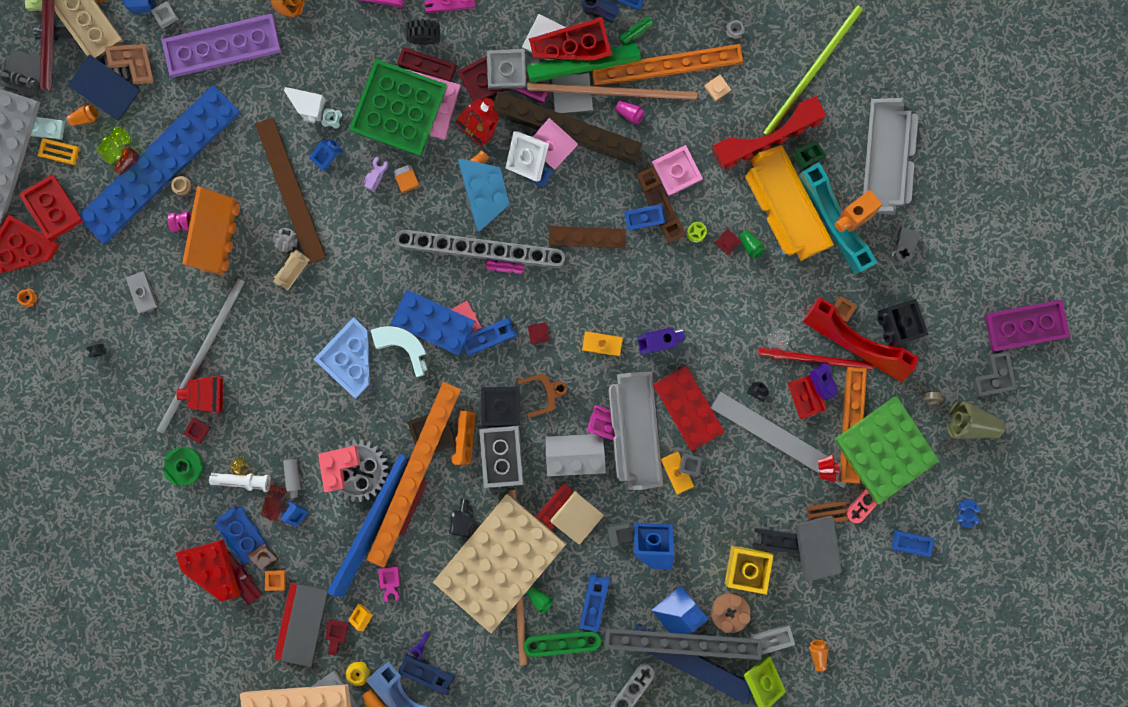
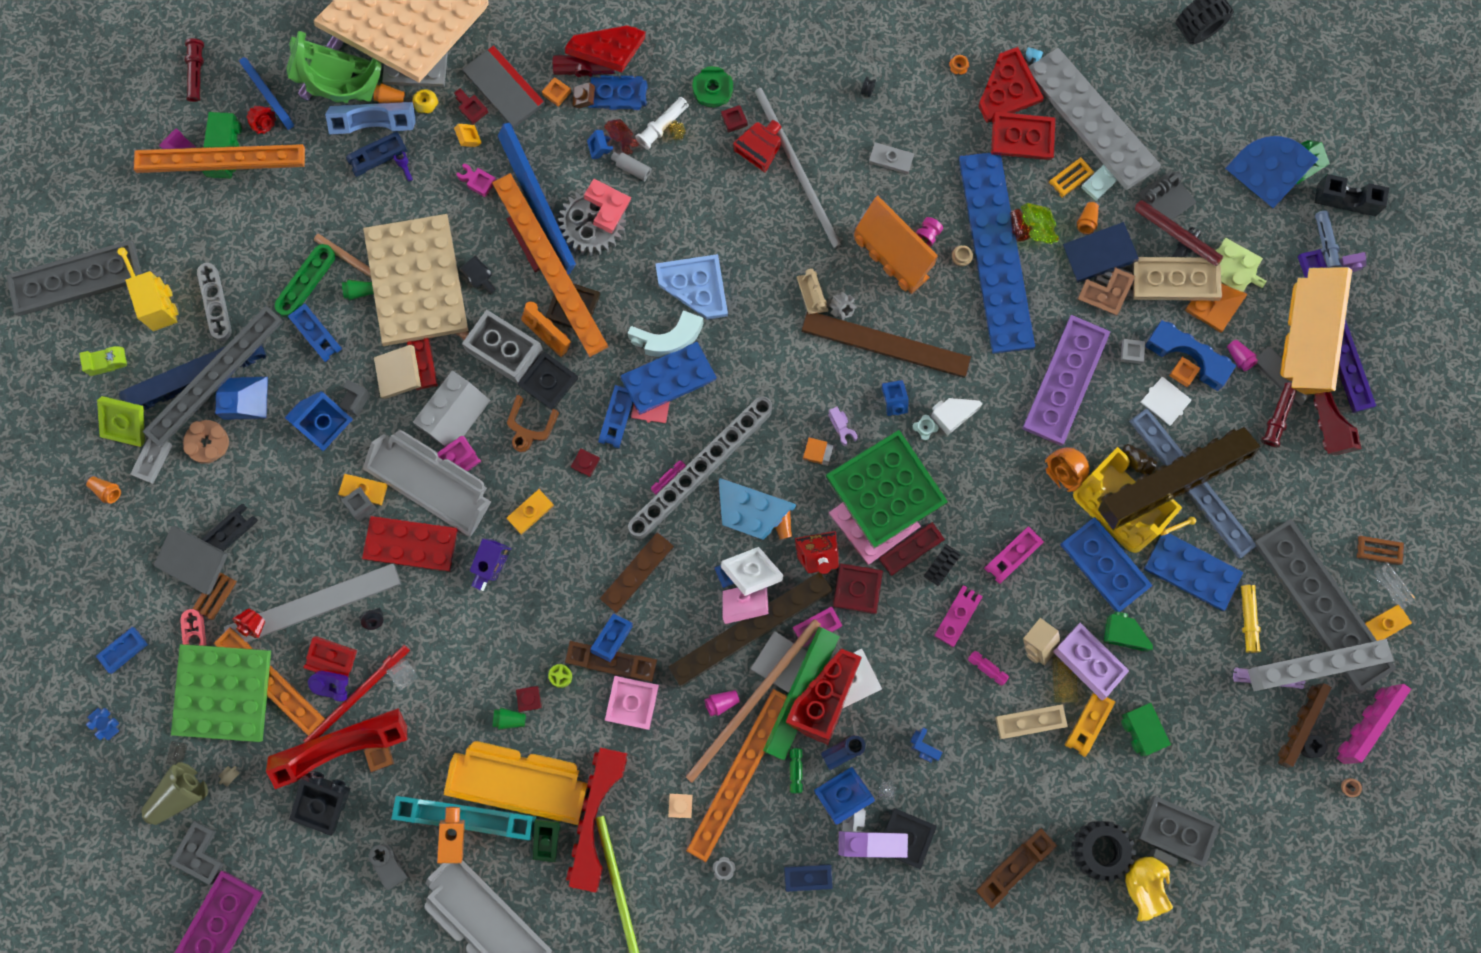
camera: 120 degrees right, 10 degrees down
(506, 69) = (849, 615): light grey tile -> none
(748, 569) = (226, 483): yellow brick -> none

